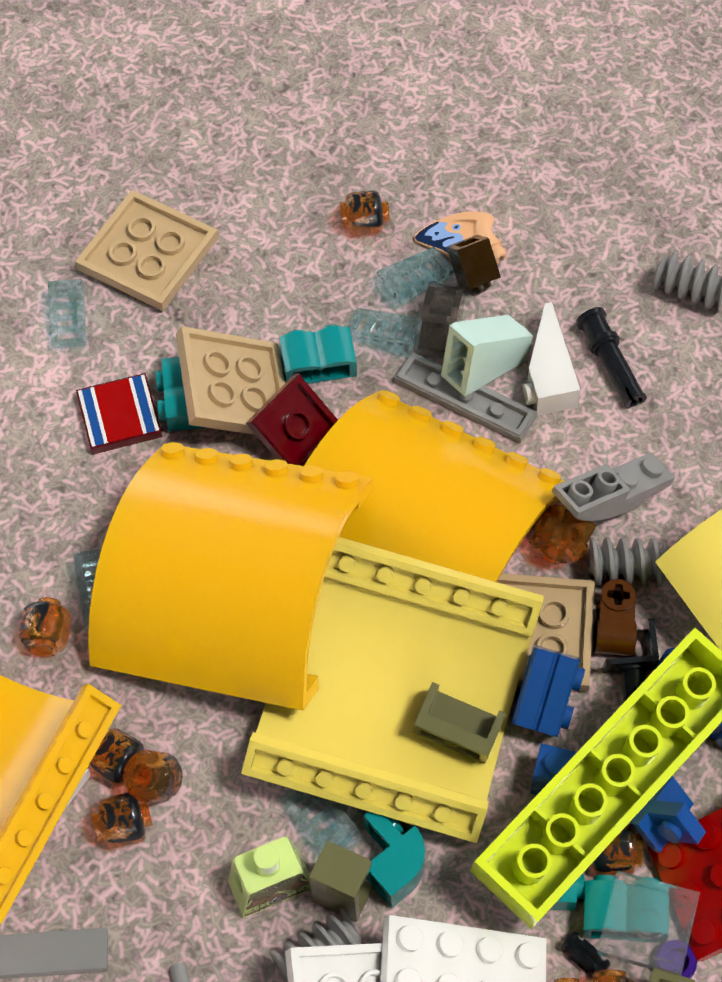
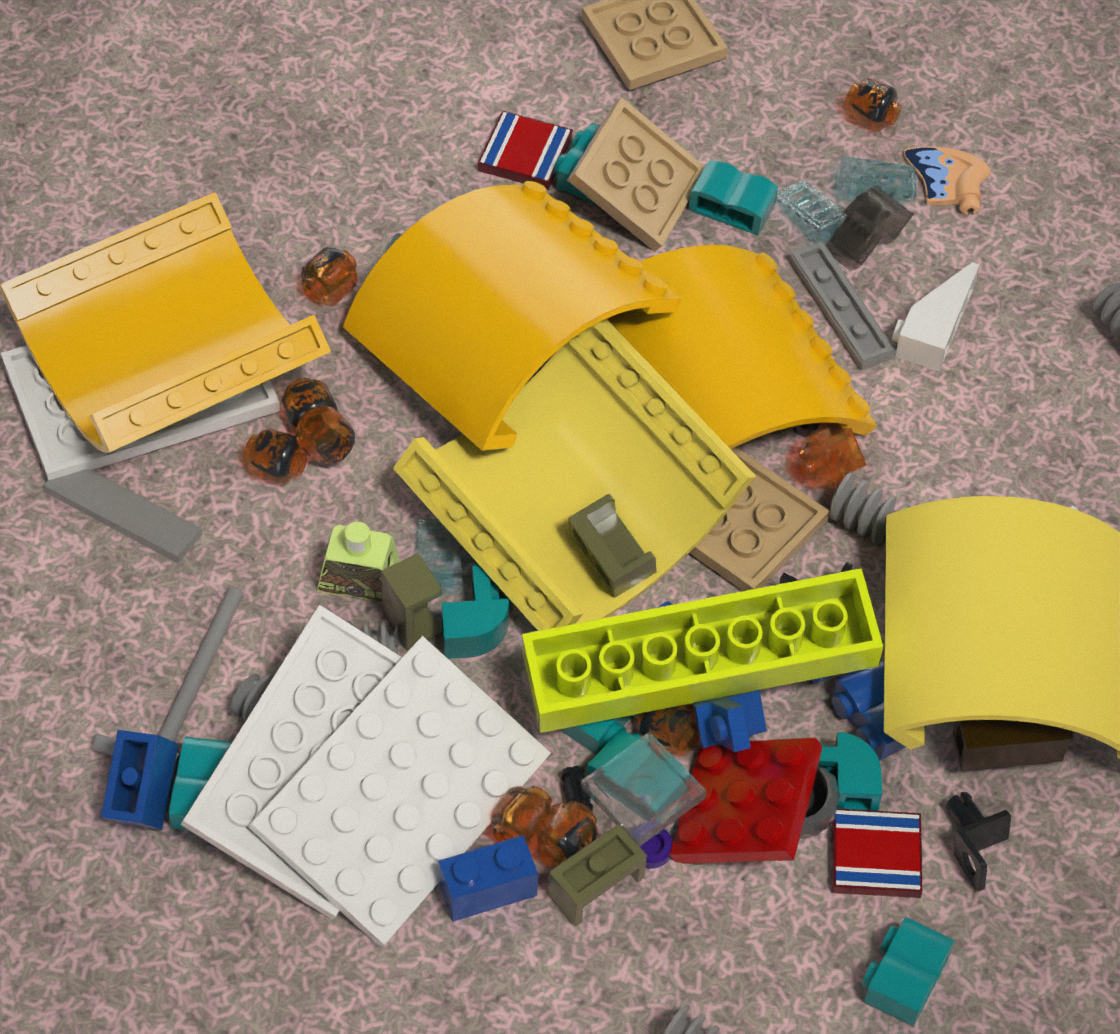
camera: 30 degrees right, 5 degrees down
(65, 289) = (551, 23): clear light blue slope -> none
(292, 422) = (663, 226): dark red tile -> none
(473, 263) = (936, 197): dark brown brick -> none
(483, 351) = (882, 268): light aqua slope -> none
(547, 691) = (710, 563): blue brick -> none
(605, 345) = (1005, 332): black pin -> none
(614, 491) = (897, 446): light grey slope -> none
(616, 624) = (823, 549): reddish brown piece -> none

